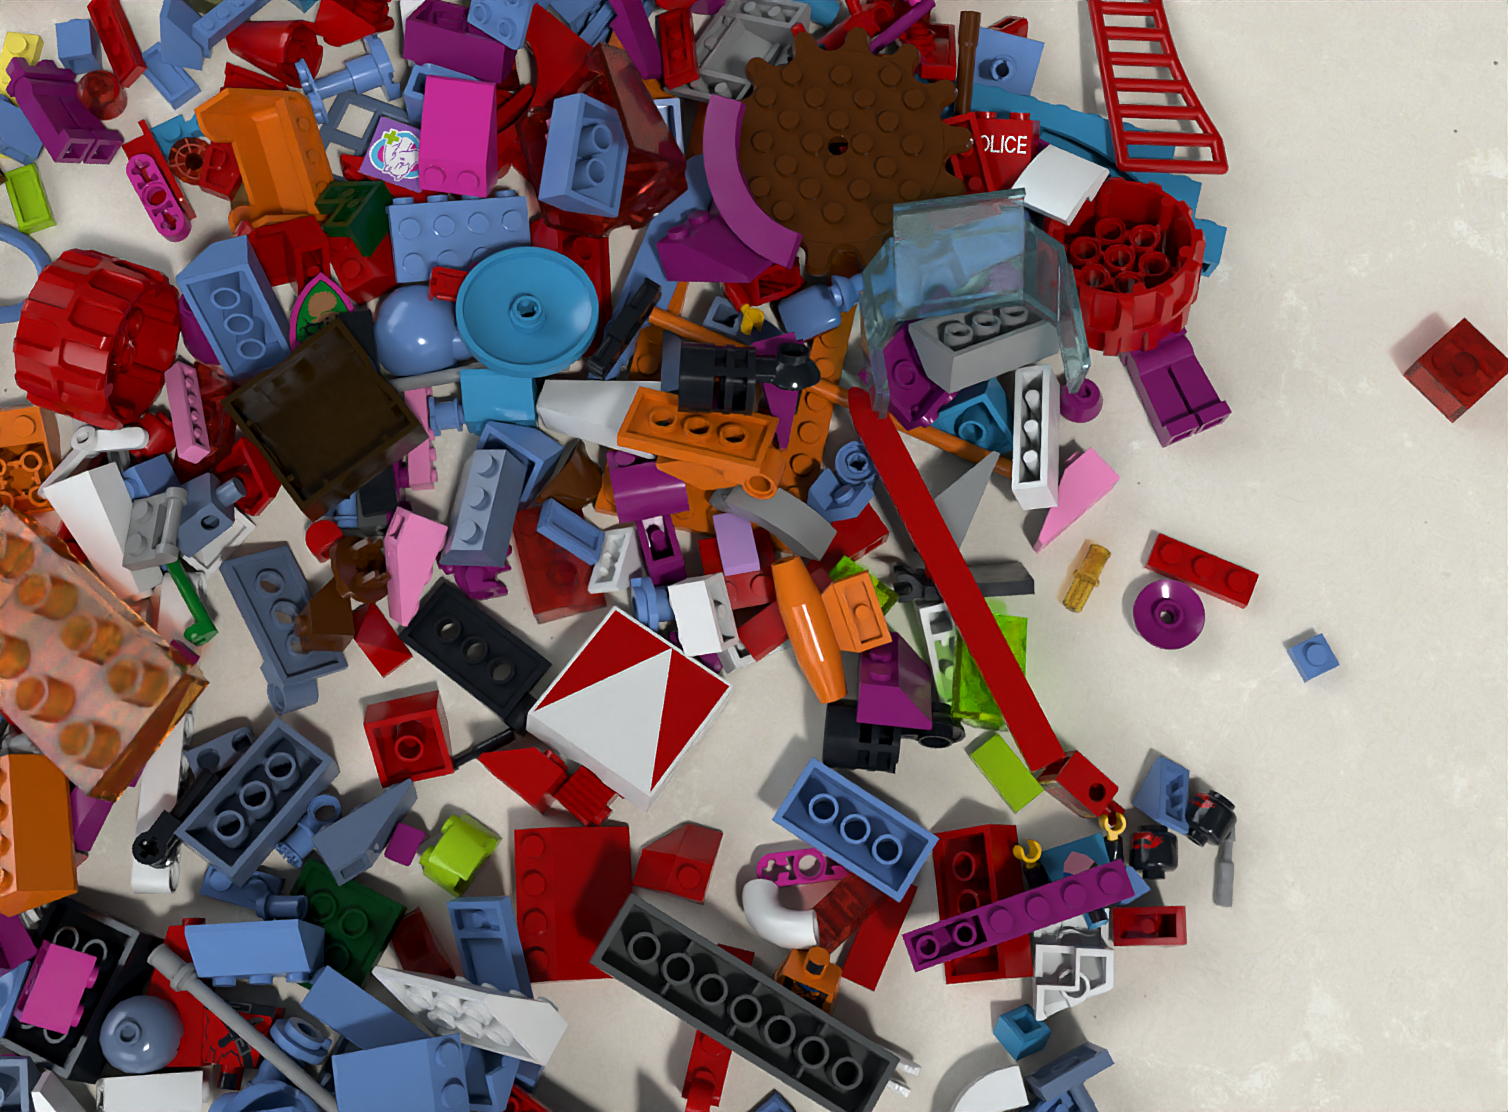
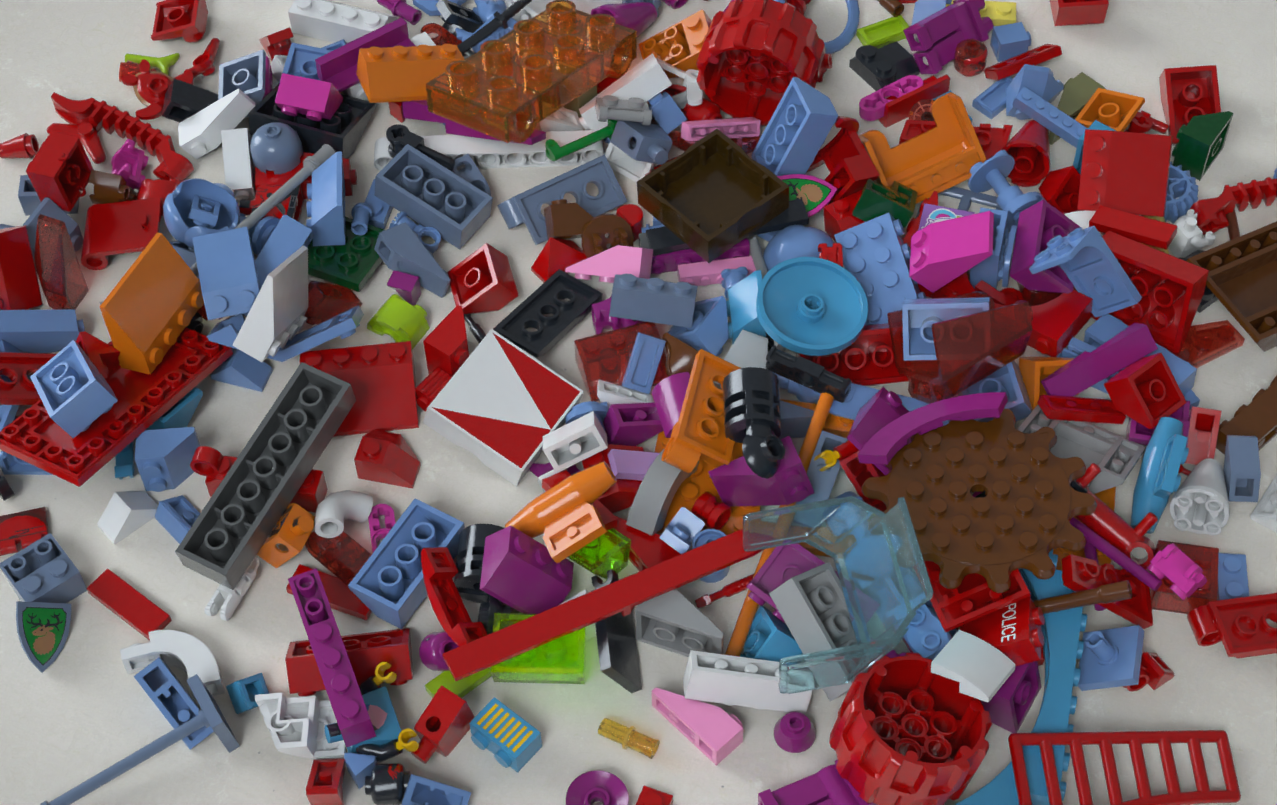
camera: 90 degrees right, 20 degrees down
(90, 204) = (883, 64): none -> black slope
(804, 461) = (711, 511): none -> red wheel
(932, 775) = (444, 597): none -> red slope
(979, 789) = (432, 650): none -> magenta head
(1088, 714) = (505, 735): none -> dark azure brick

